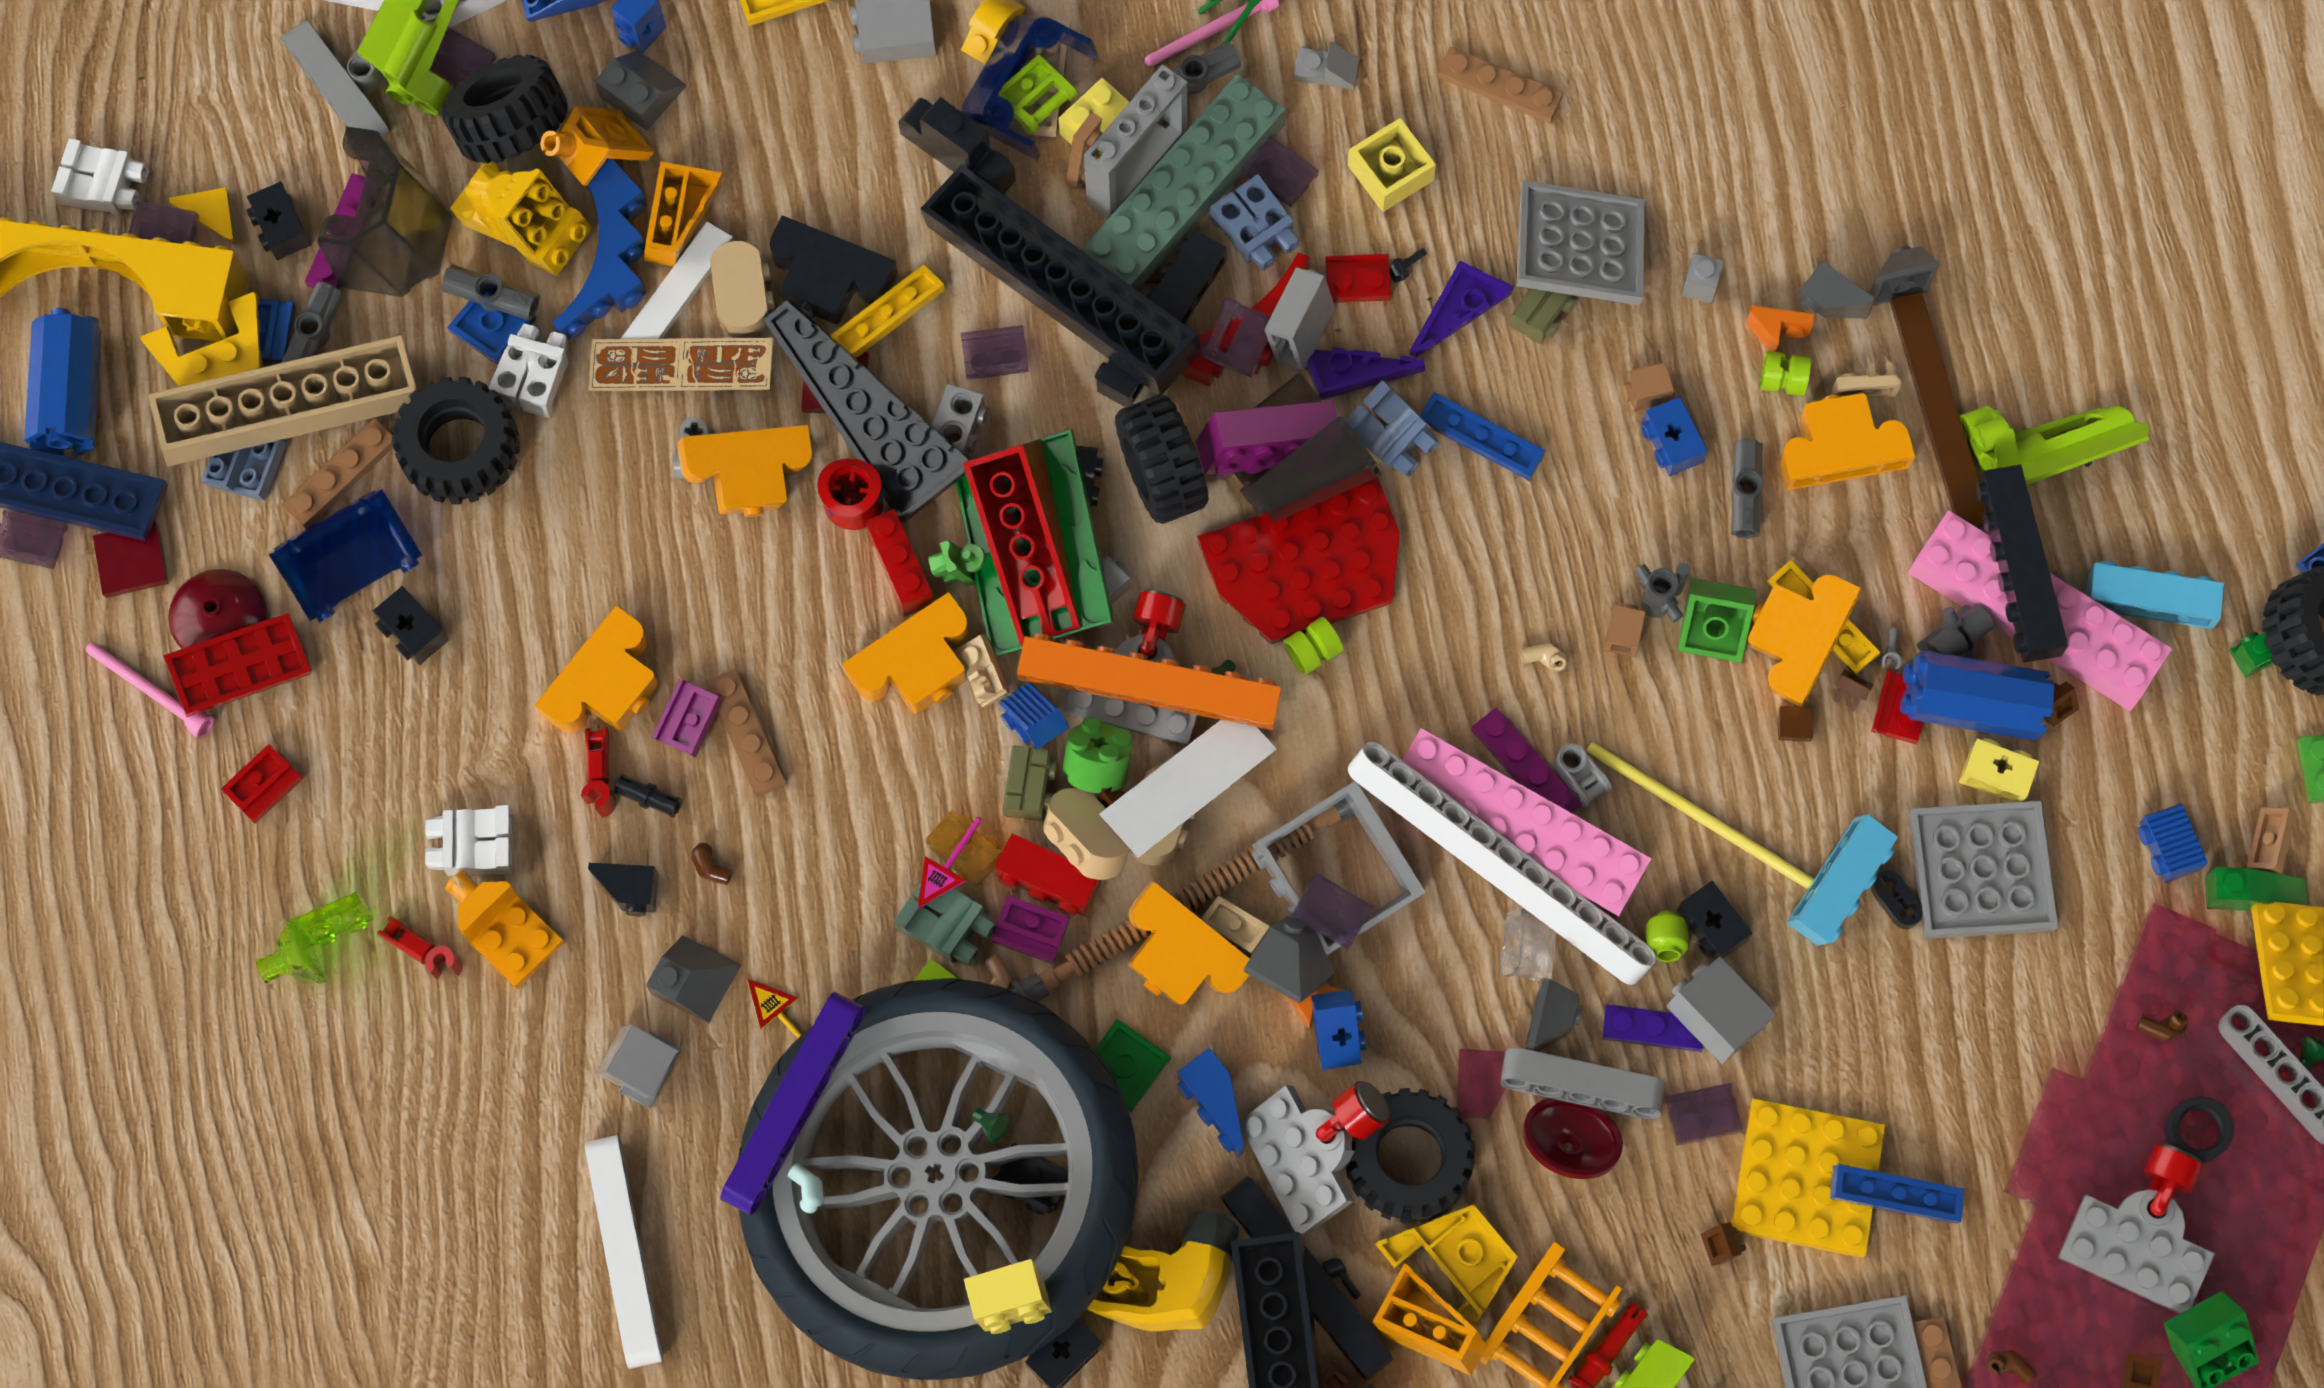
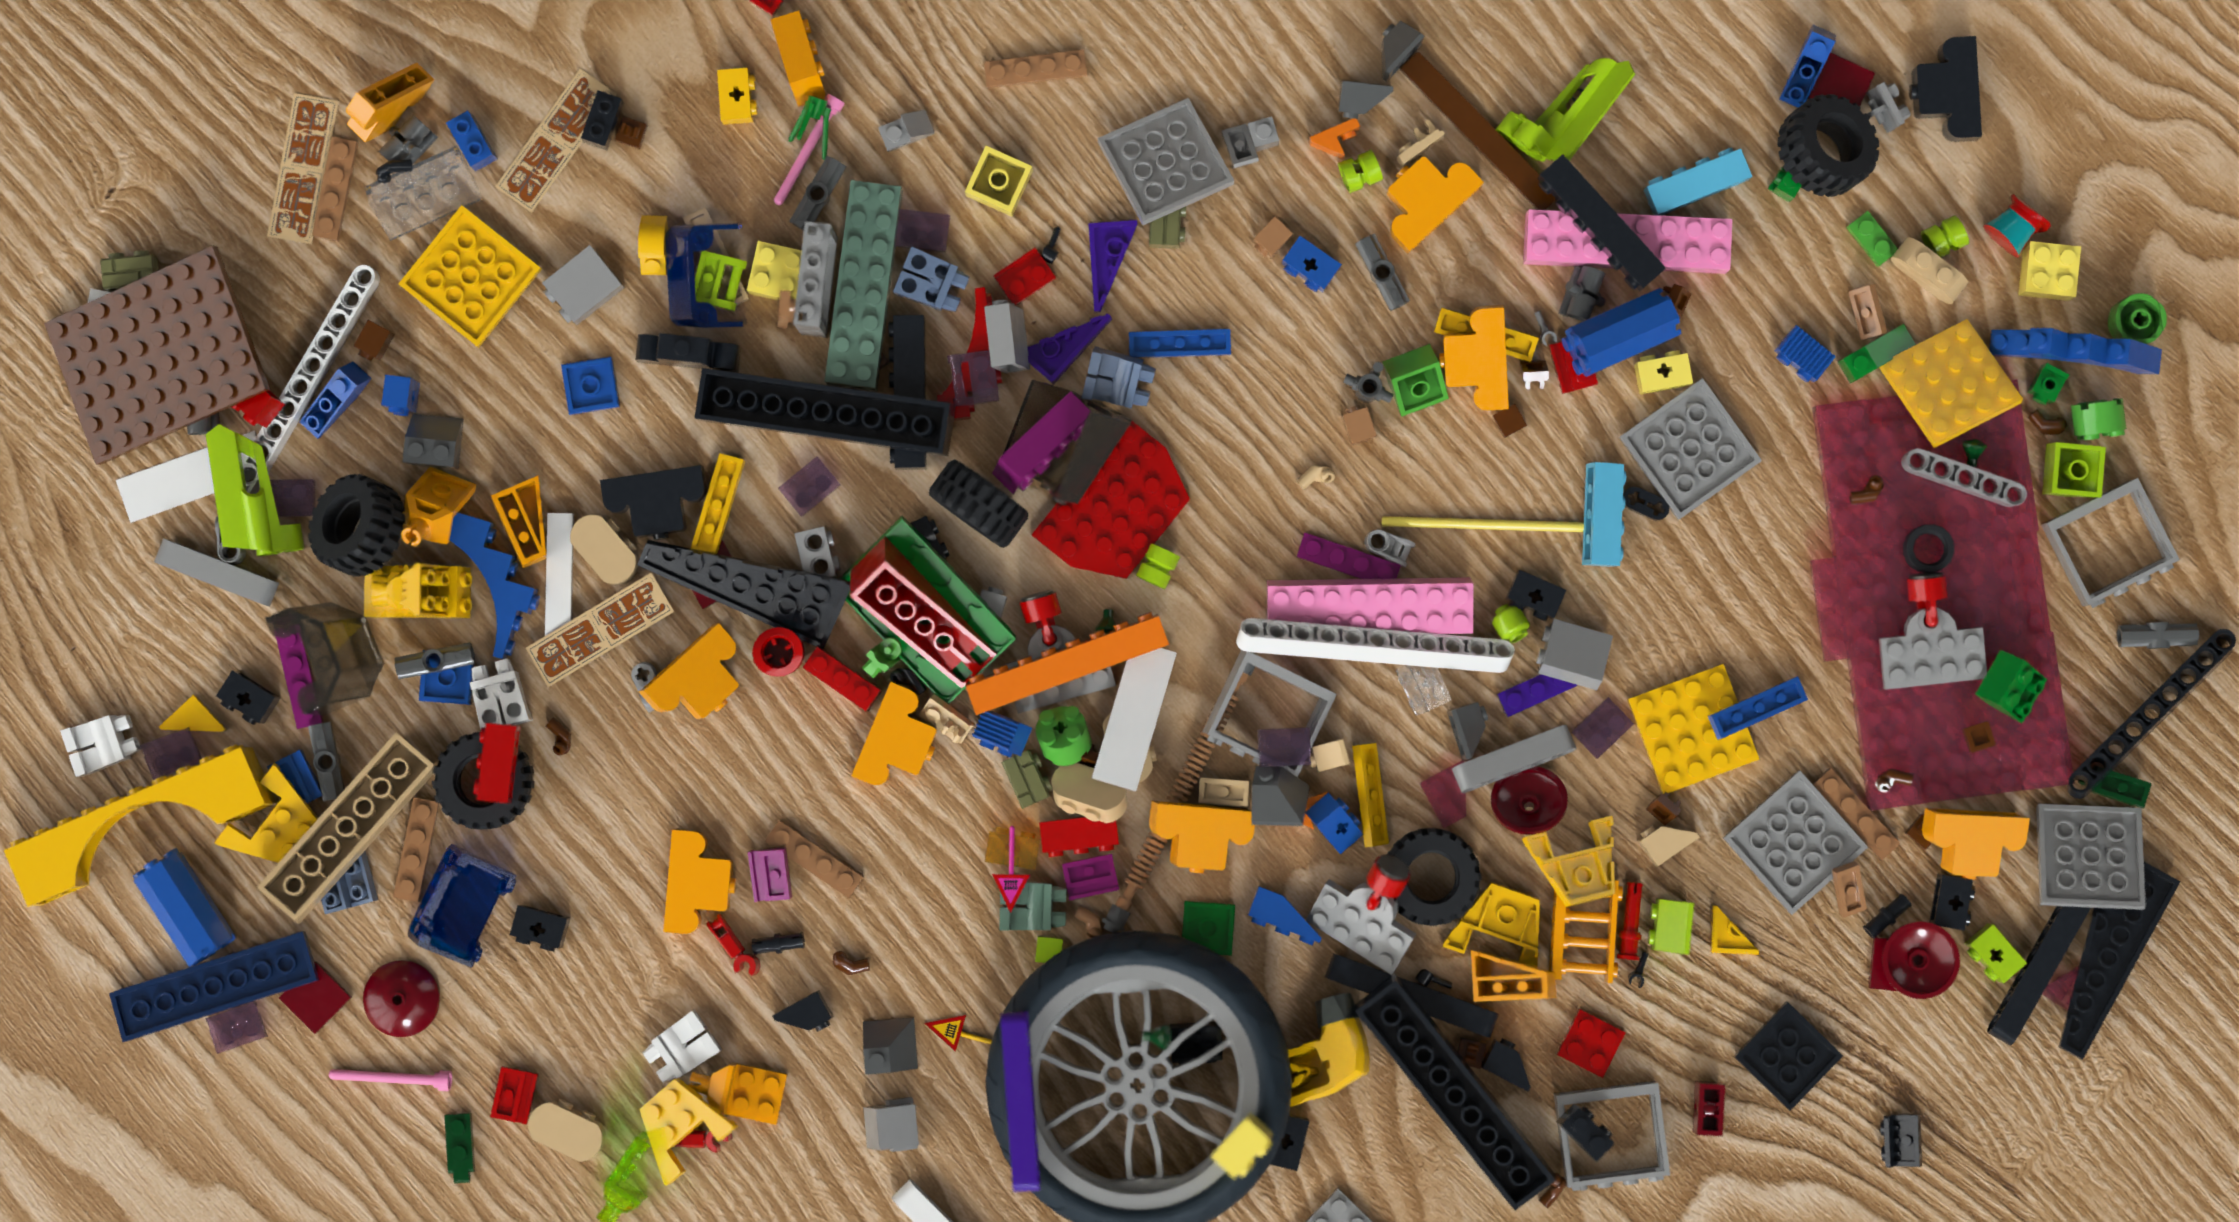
camera: 30 degrees left, 15 degrees up
(167, 803) = (459, 1146): none -> dark green hinge
(237, 664) = (442, 1027): red plate -> none
(290, 853) = (567, 1130): none -> tan brick
(407, 905) = (672, 1117): none -> yellow wing
(481, 419) = (497, 762): none -> red brick
(568, 451) = (562, 737): none -> reddish brown arm
(810, 1188) = (1068, 1149): light aqua arm -> none
(836, 127) = (590, 385): none -> blue tile
(971, 607) = (908, 677): none -> black arm
(1376, 954) = (1329, 755): none -> tan slope
(1396, 1026) = (1370, 795): none -> yellow plate
(1580, 1252) = (1581, 874): none -> yellow wing
(1669, 279) = (1239, 146): none -> light grey slope
(1701, 1282) = (1664, 842): none -> tan slope

